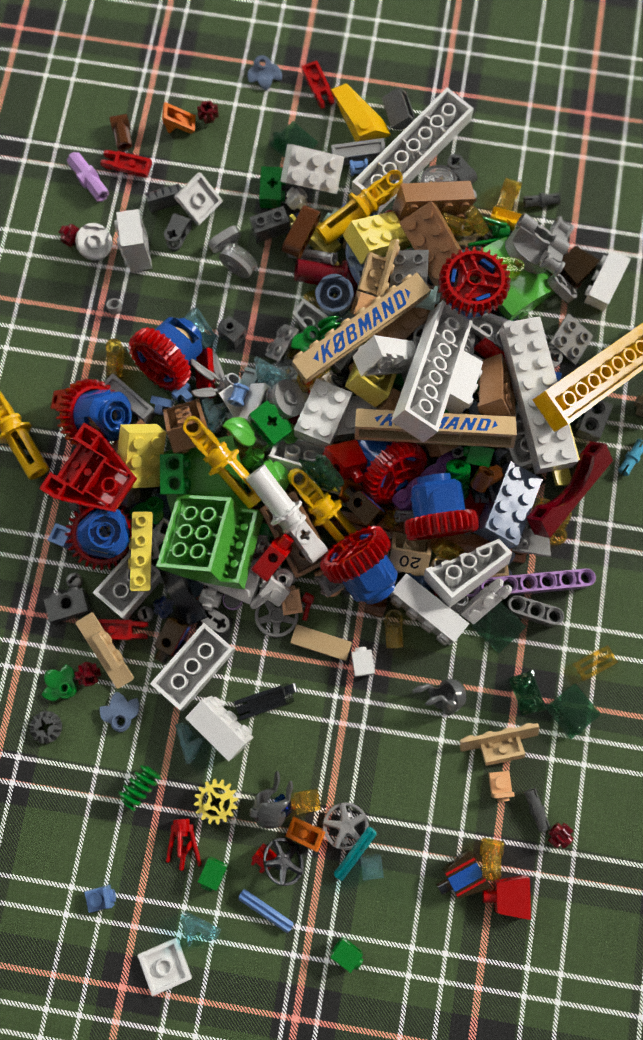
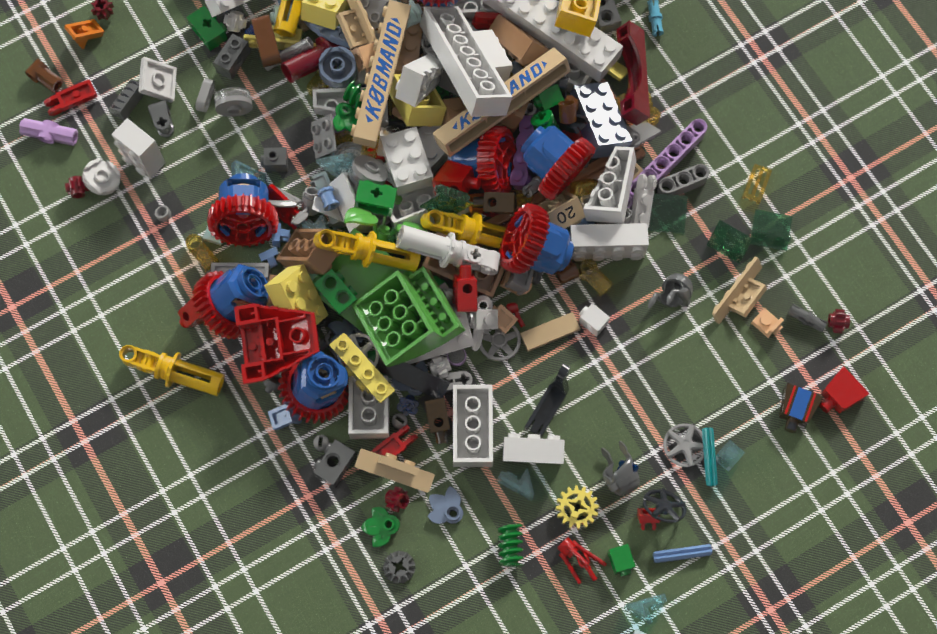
camera: 40 degrees left, 5 degrees down
(152, 505) = (334, 332): green plate -> none
(305, 834) = (663, 472): orange slope -> none
(306, 801) = (642, 450): clear yellow brick -> none
(347, 955) = (766, 531): green brick -> none
(491, 853) = (804, 373): clear yellow piece -> none

